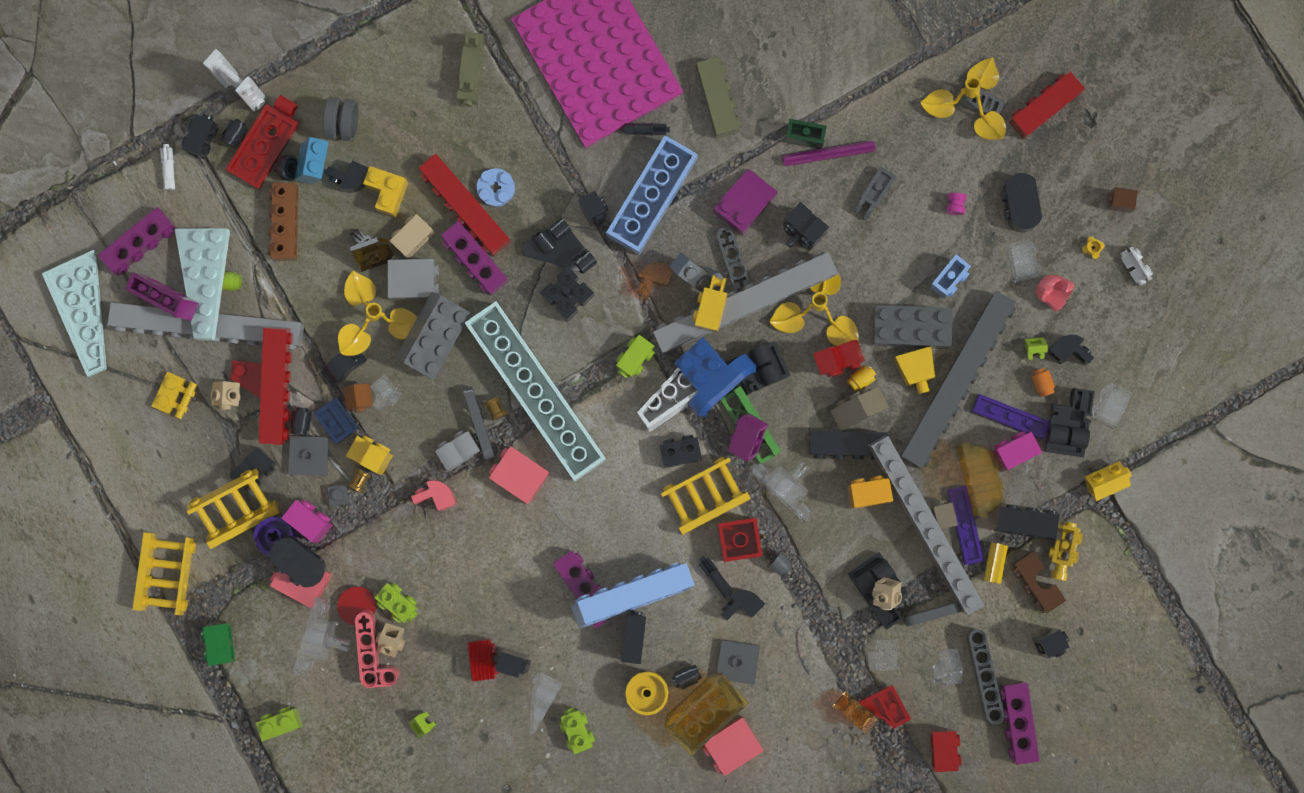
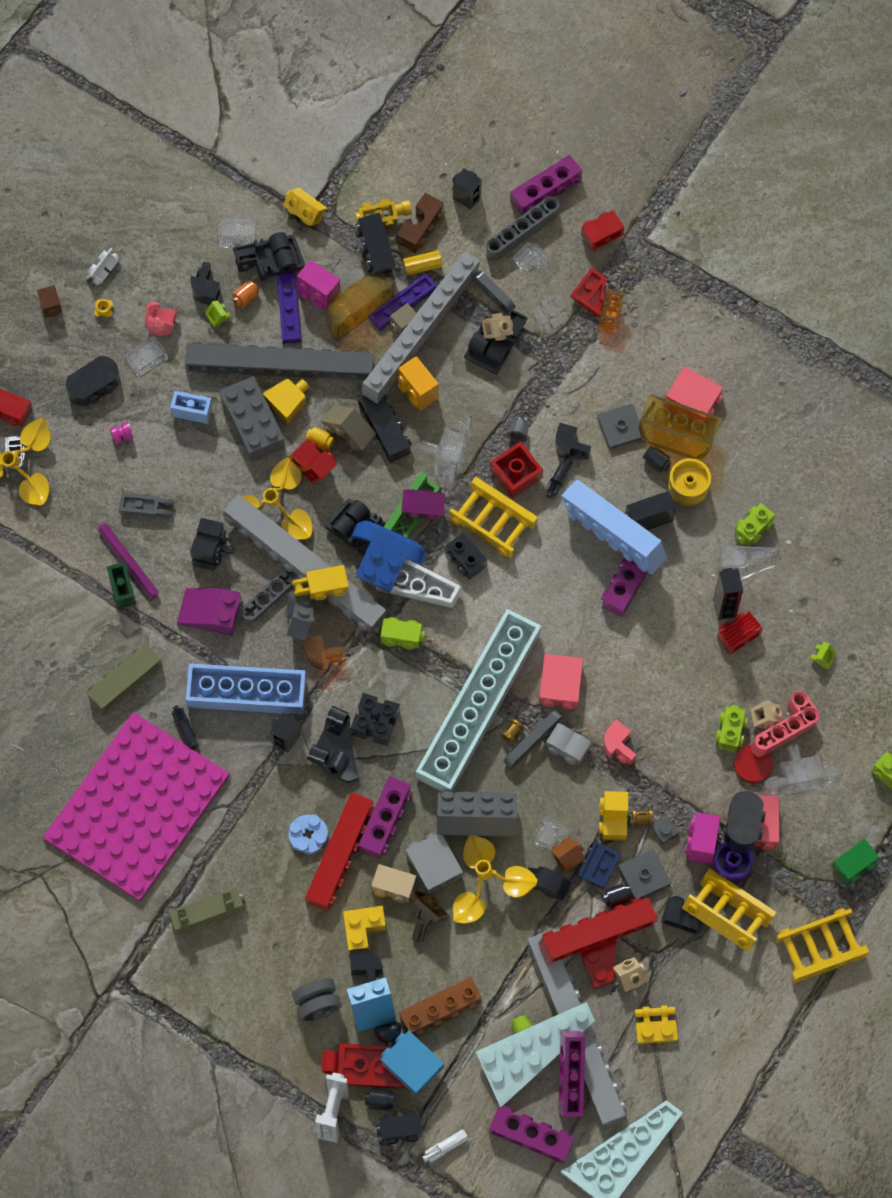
camera: 120 degrees left, 15 degrees down
(245, 170) = (411, 1062): none -> dark azure brick

